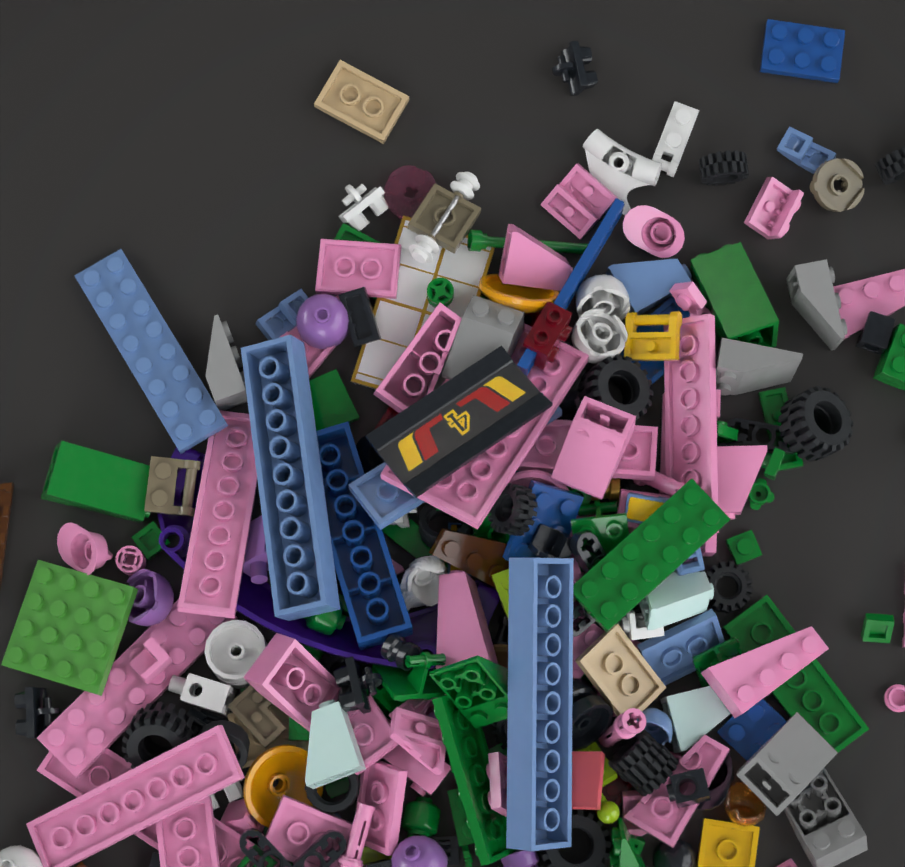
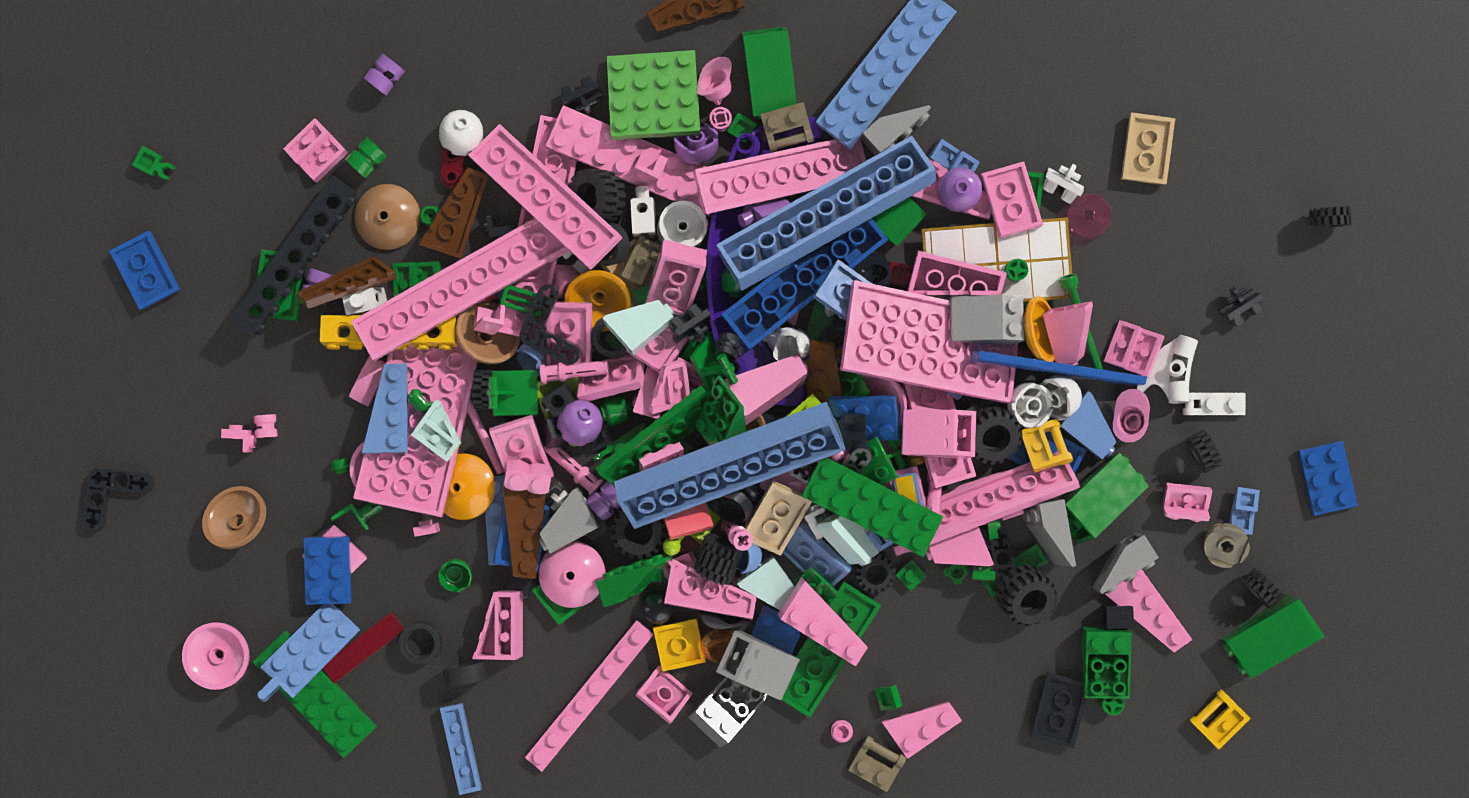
camera: 75 degrees right, 10 degrees up
(361, 317) = (973, 217): black plate -> none
(444, 217) = (1077, 250): dark tan plate -> none
(458, 421) = (916, 323): black hinge -> none
(515, 521) = (866, 391): black tyre -> none
(547, 333) = (1015, 364): dark red bracket -> none
(689, 298) = (1086, 463): bright pink plate -> none
(701, 792) = (718, 606): black brick -> none

